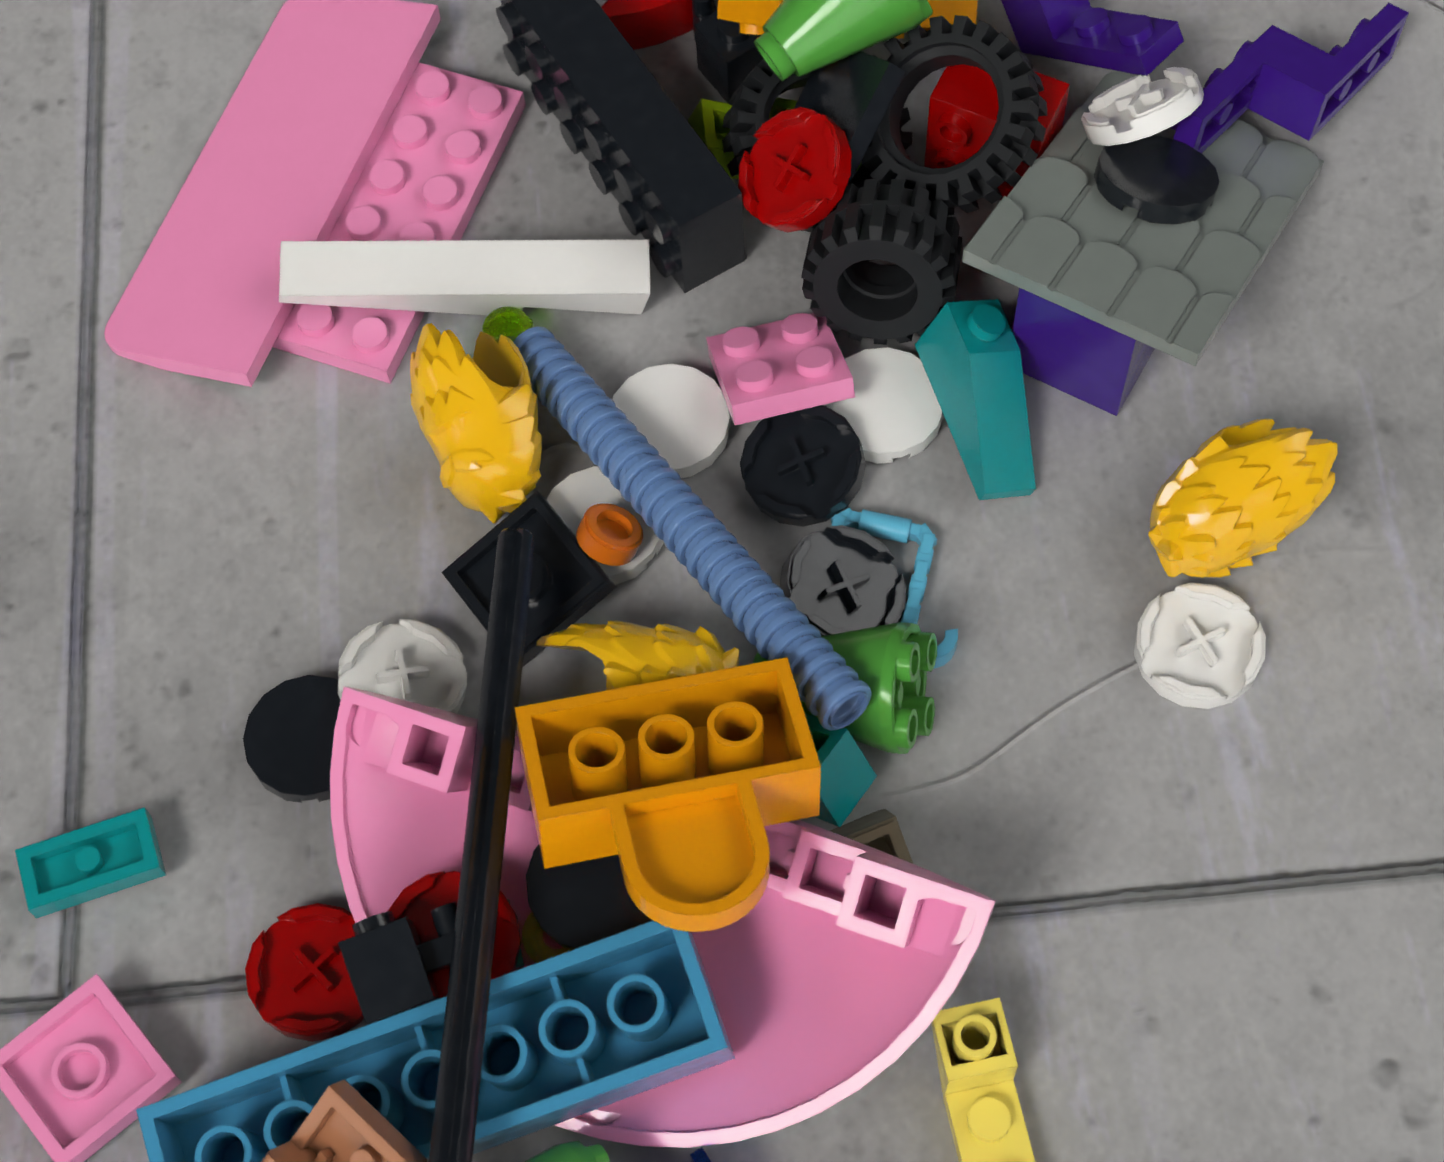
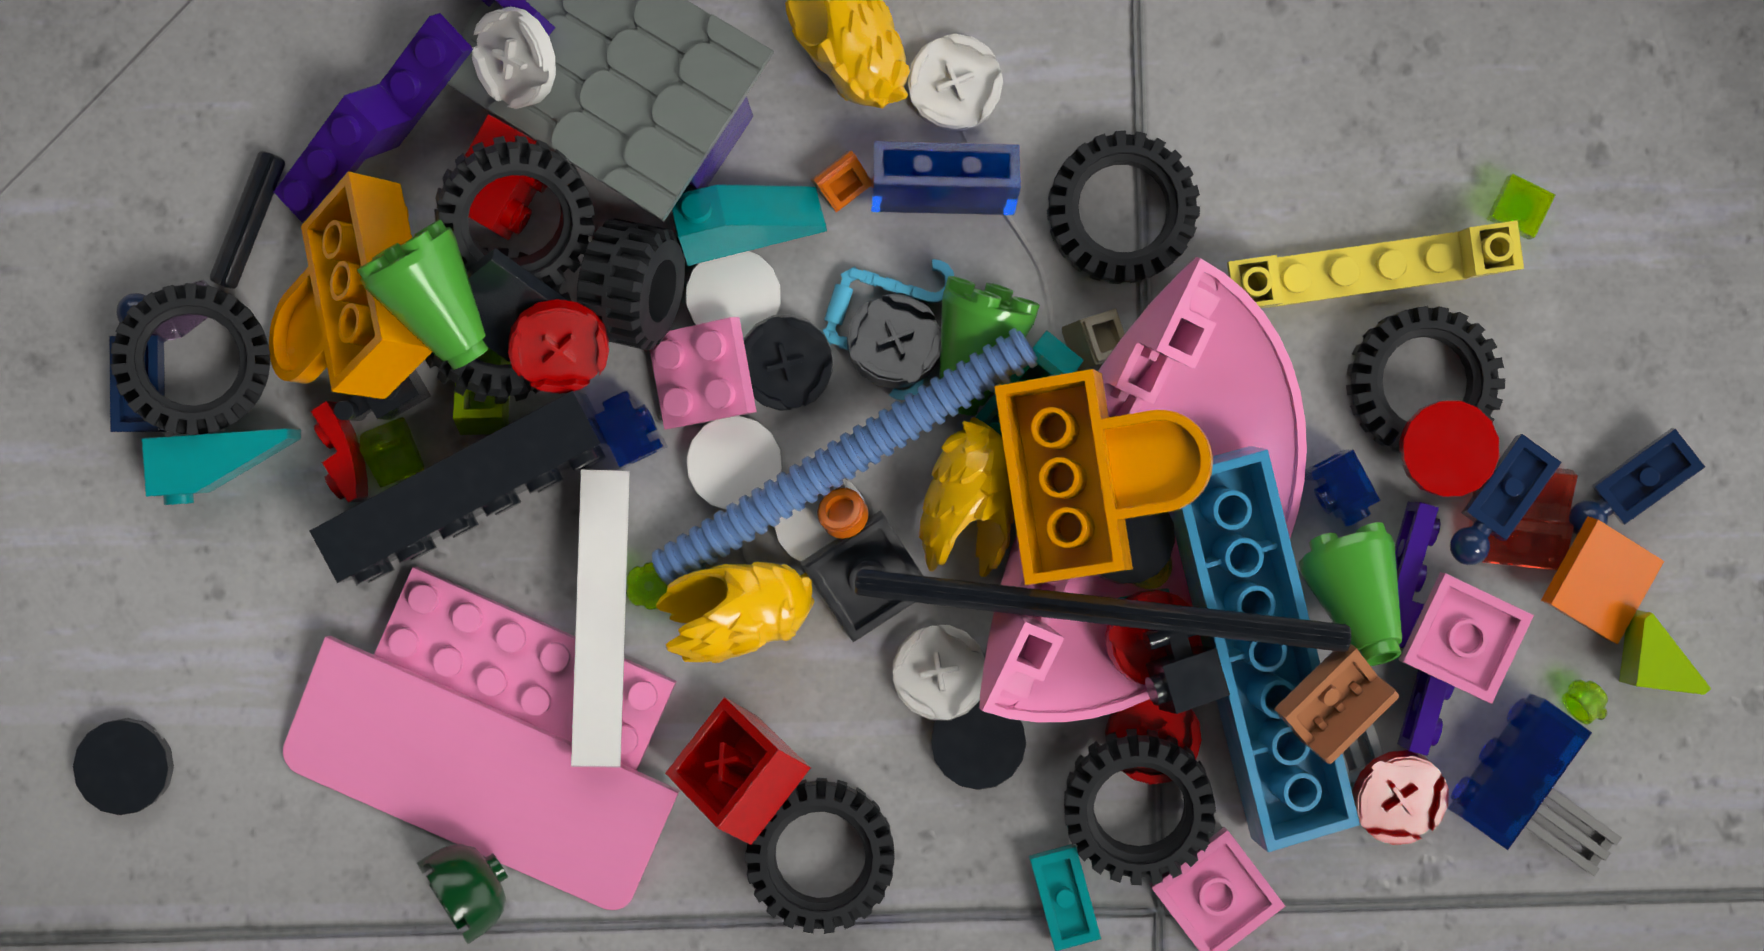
camera: 90 degrees left, 25 degrees up
(136, 159) = (467, 887): none -> dark green cylinder
(144, 489) = (825, 911): none -> black tyre
(267, 987) = (1150, 859): none -> black tyre
(270, 430) = (737, 771): none -> red brick
(667, 60) = (391, 452): none -> clear neon green slope
(700, 295) = (628, 429): none -> clear blue brick
(1048, 515) = (842, 181): none -> orange slope
(1067, 625) = (945, 178): none -> clear blue brick
(1103, 805) = (1168, 173): none -> black tyre
(1157, 178) = (588, 55): black tile -> none

